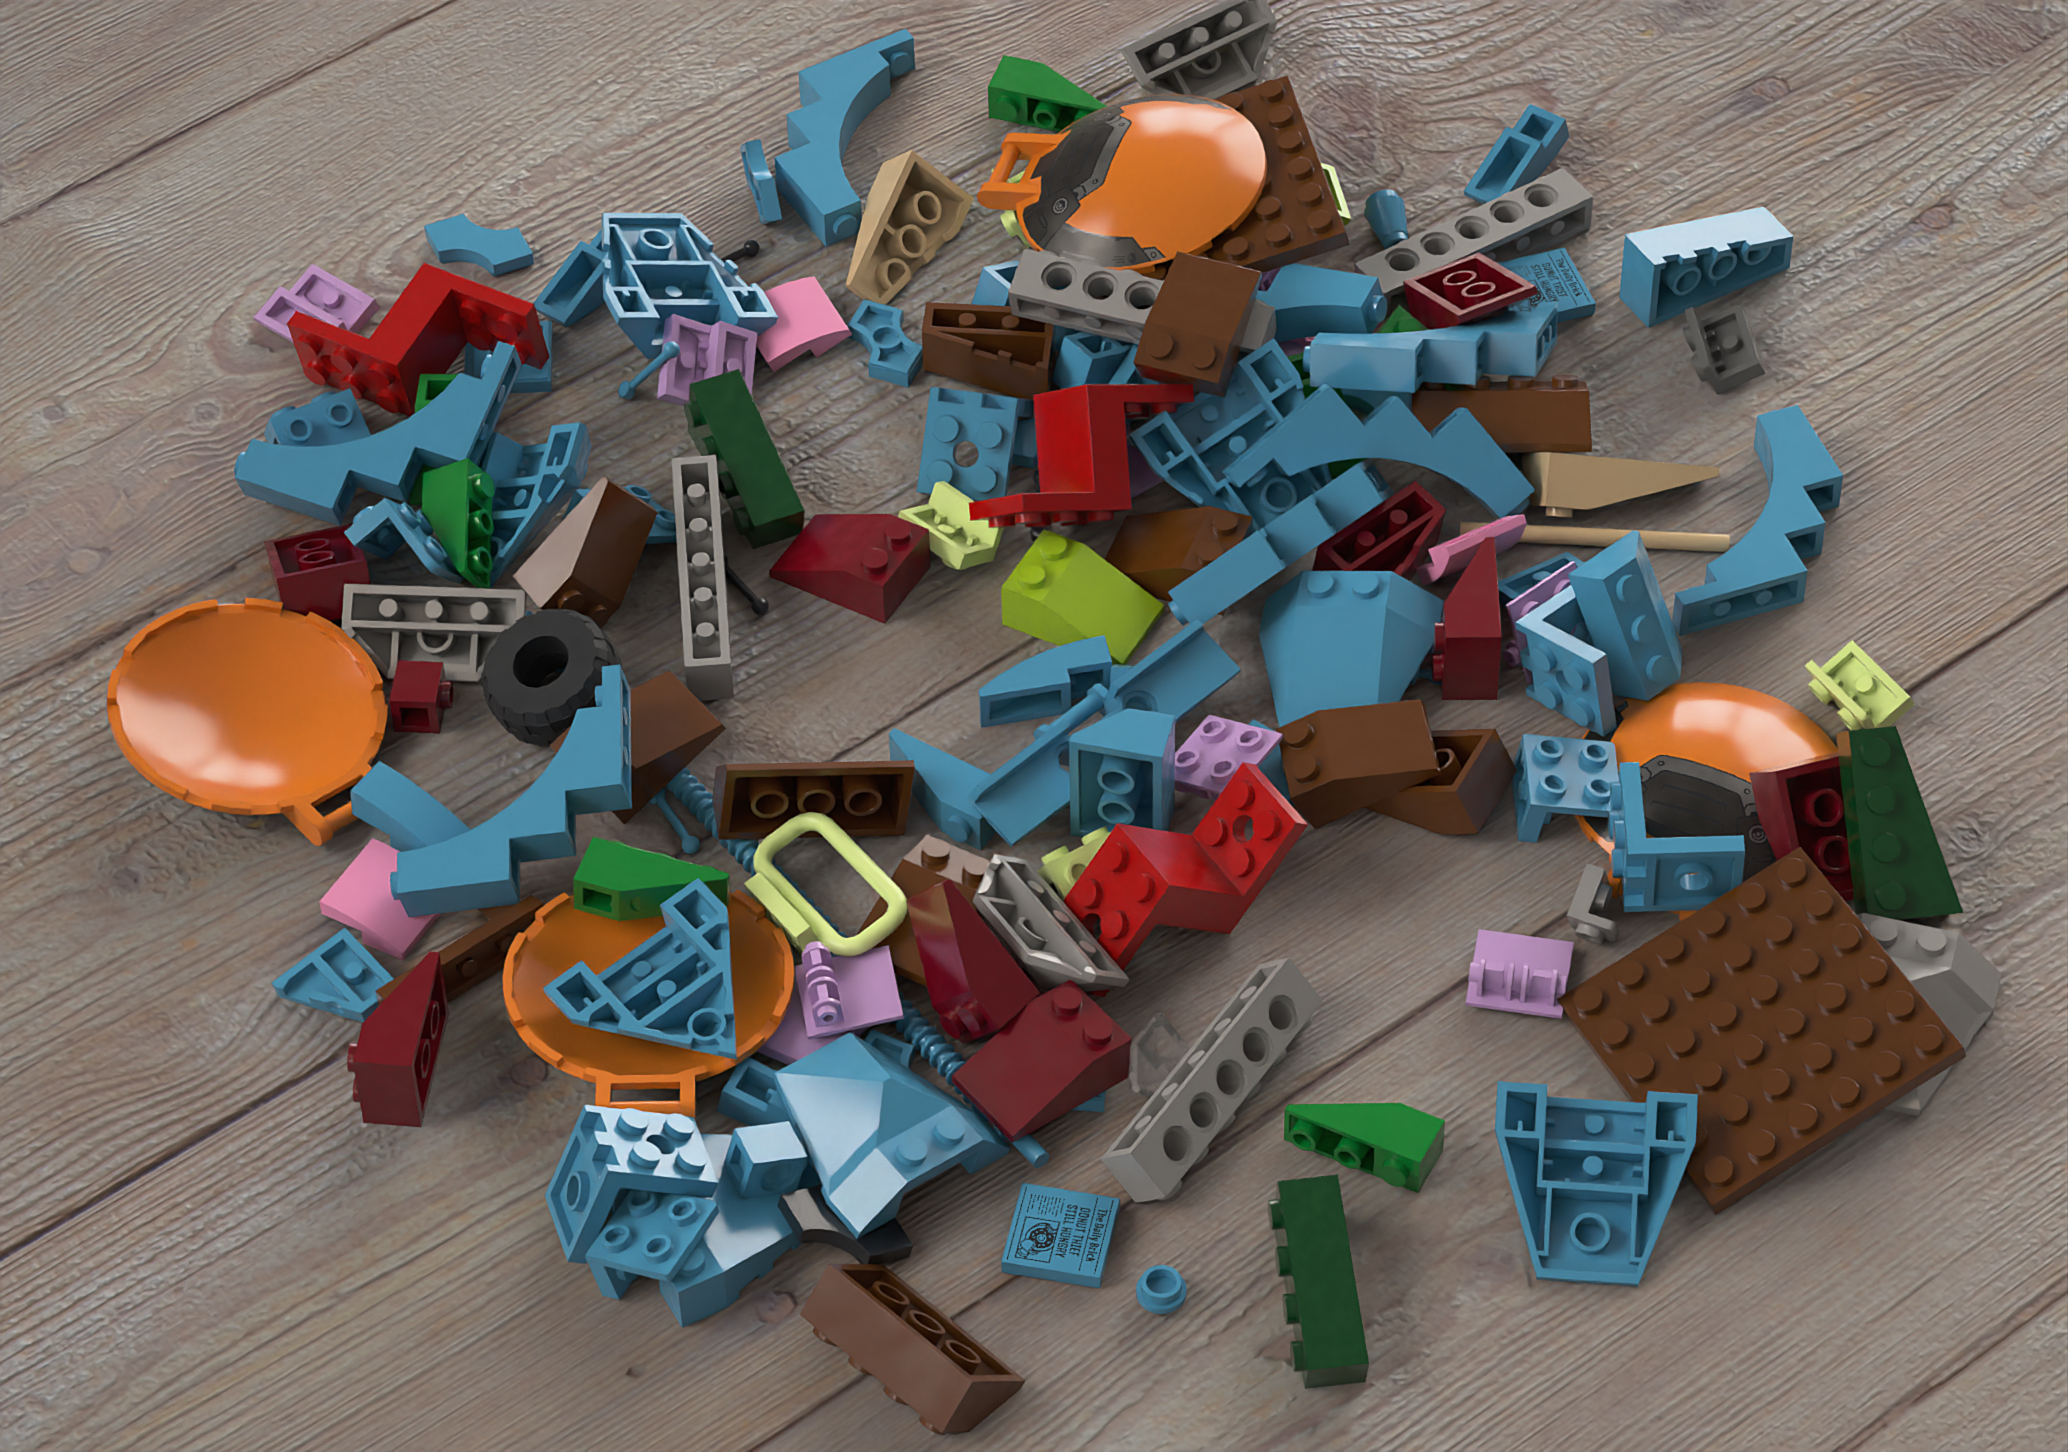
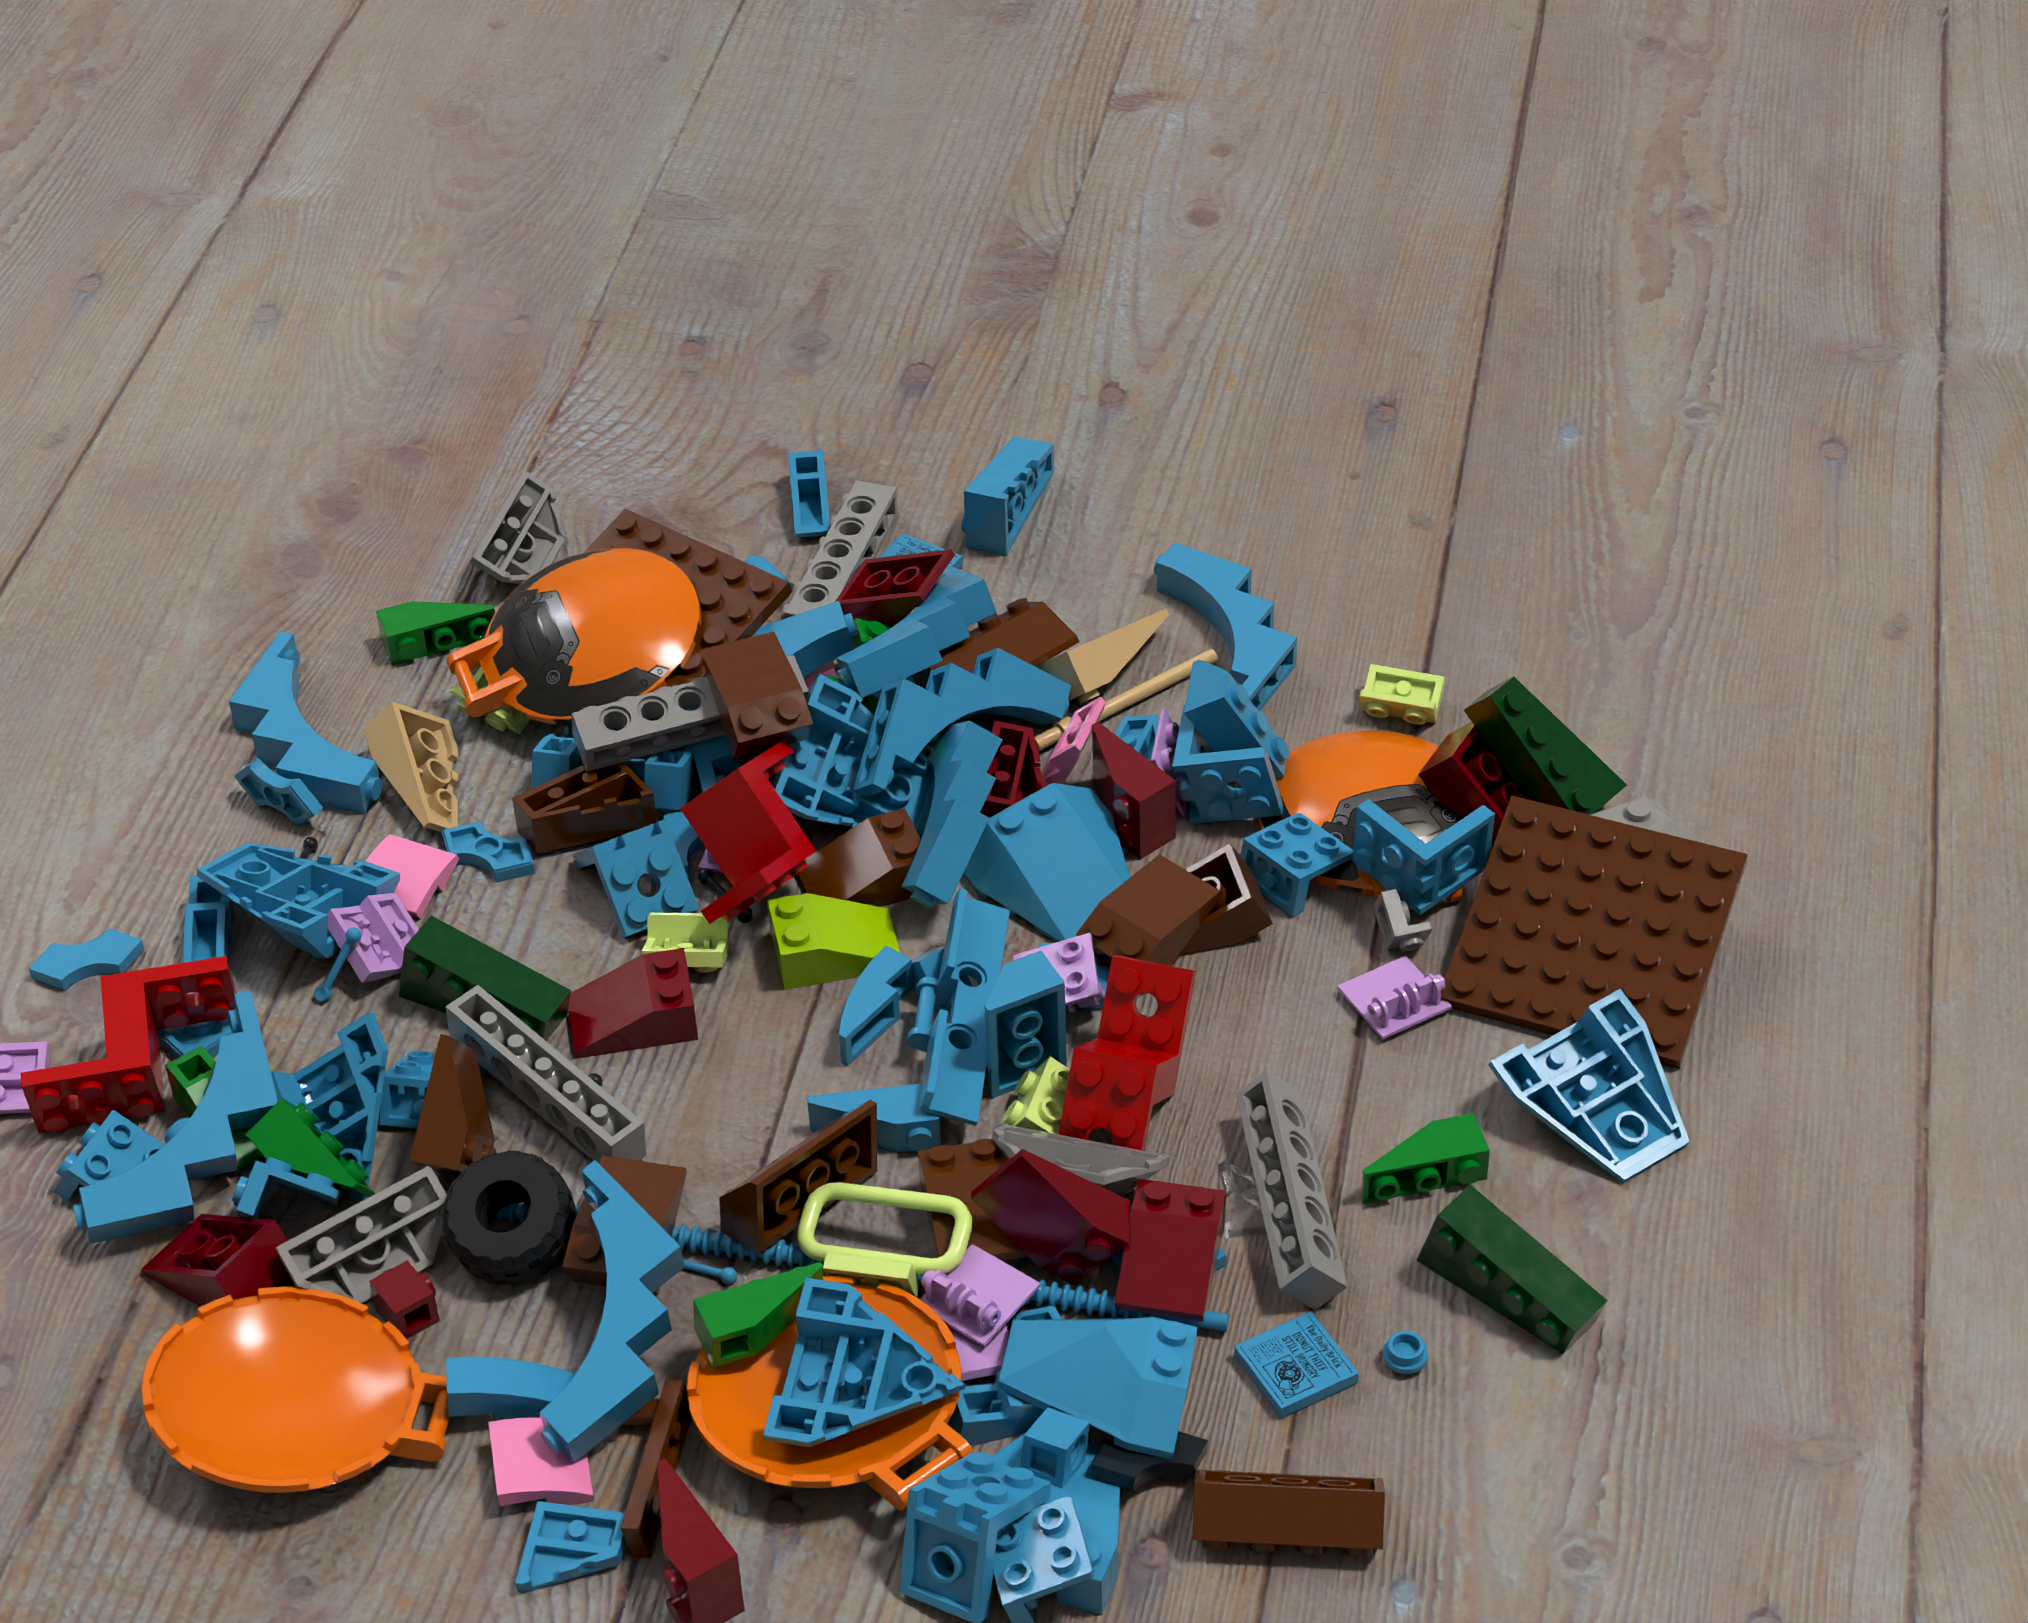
camera: 40 degrees left, 5 degrees down
(1724, 348) = (1079, 537): dark grey bracket -> none

